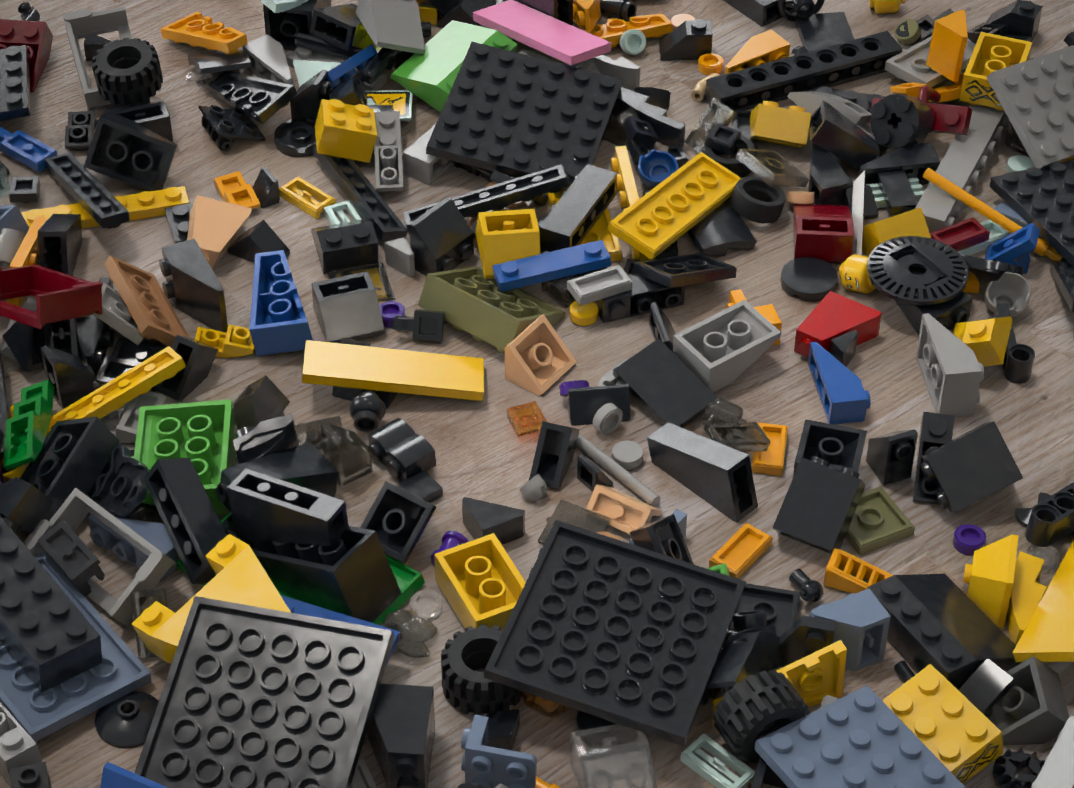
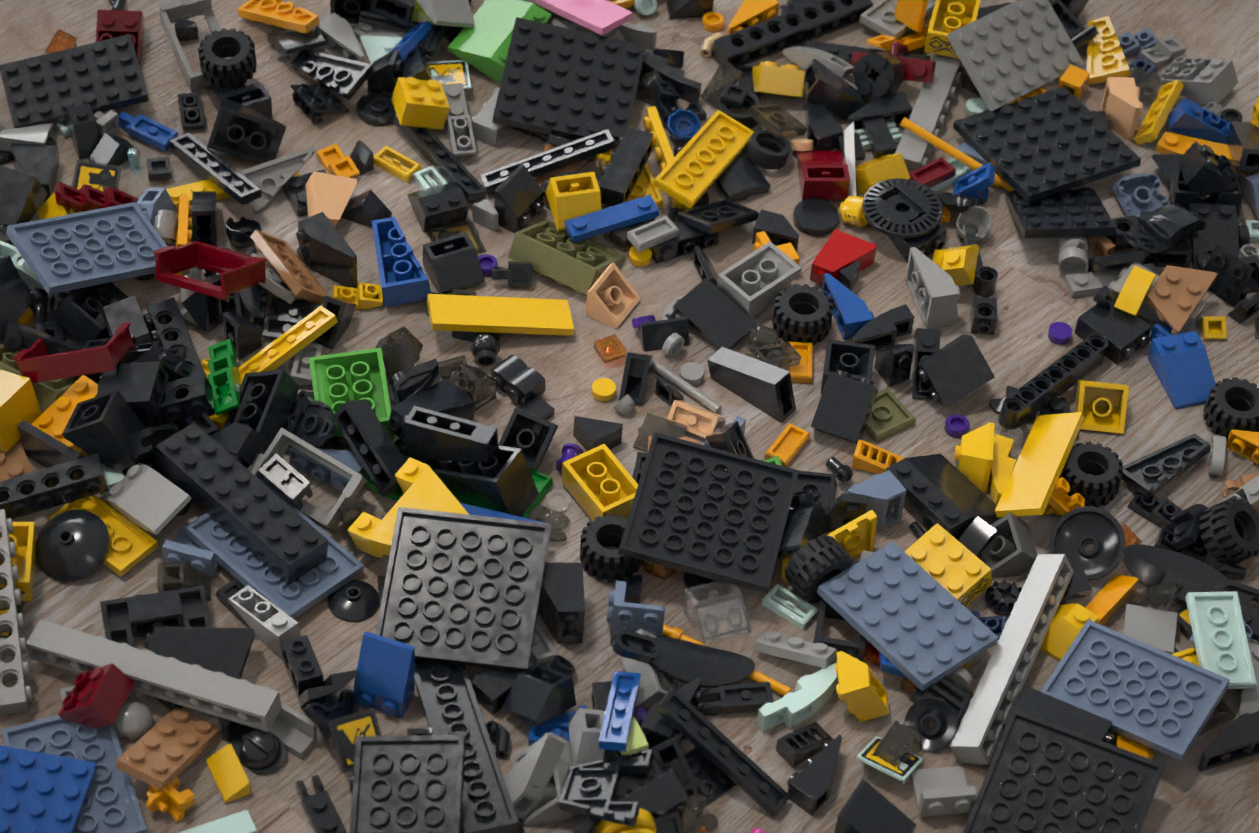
camera: 10 degrees left, 5 degrees up
(94, 260) = (240, 231): none -> black hair
(154, 200) = (275, 174): none -> light grey wing
(511, 468) = (603, 389): none -> yellow tile
(757, 288) = (776, 228): none -> black slope
(778, 389) = (802, 314): none -> black tyre
(885, 411) = (885, 328): none -> black slope
(1014, 404) = (983, 315): none -> black brick

